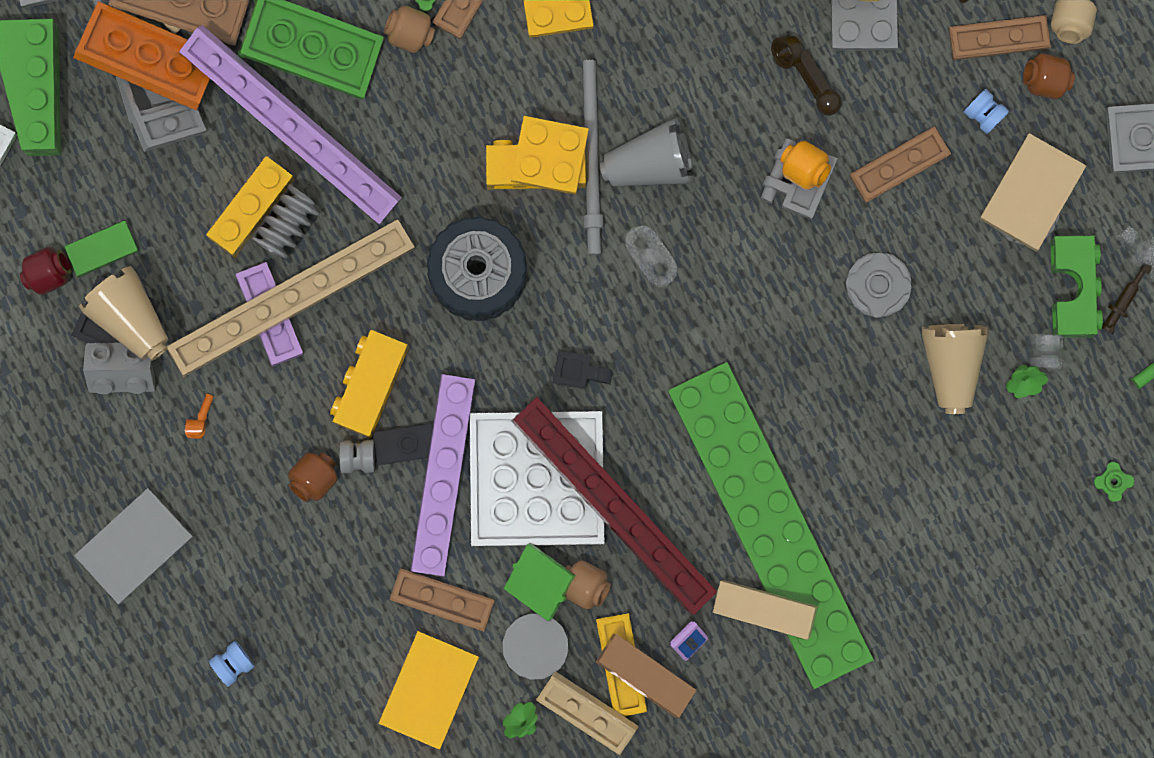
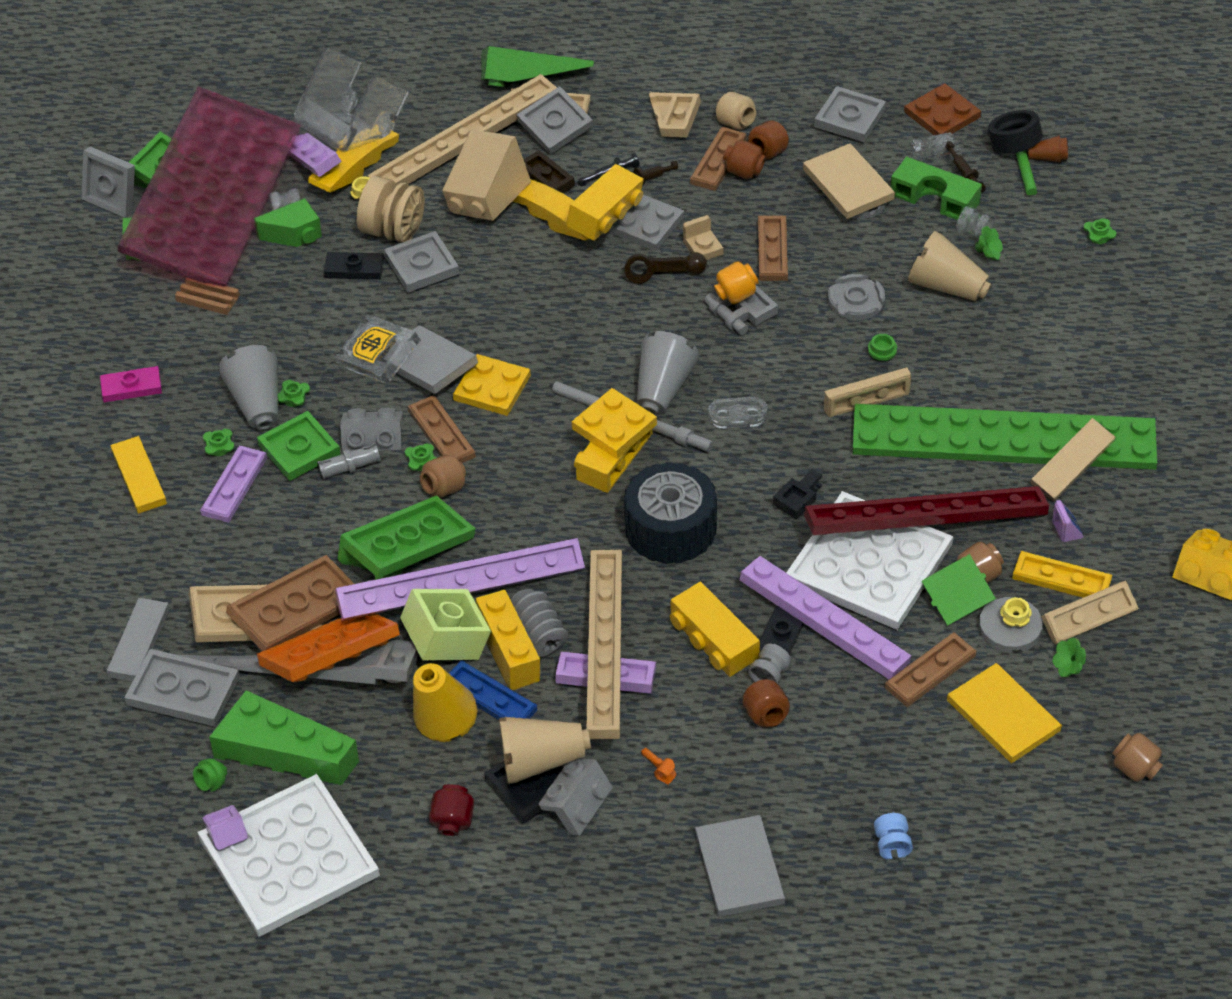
camera: 55 degrees left, 35 degrees down
(101, 249) = (463, 762): bright green tile -> none
(144, 196) = (441, 704): none -> yellow cone
(190, 225) = (491, 695): none -> blue tile
(226, 145) = (445, 624): none -> yellowish green brick
(546, 655) = (1016, 606): none -> light yellow plate
(646, 676) = (1081, 558): medium nougat tile -> none
(745, 367) = (867, 391): none -> tan tile
(820, 348) = (882, 347): none -> bright green plate
(865, 90) = (700, 238): none -> tan bracket
(980, 106) = (769, 182): light blue wheel -> none
(1001, 69) = (744, 159): none -> dark orange head

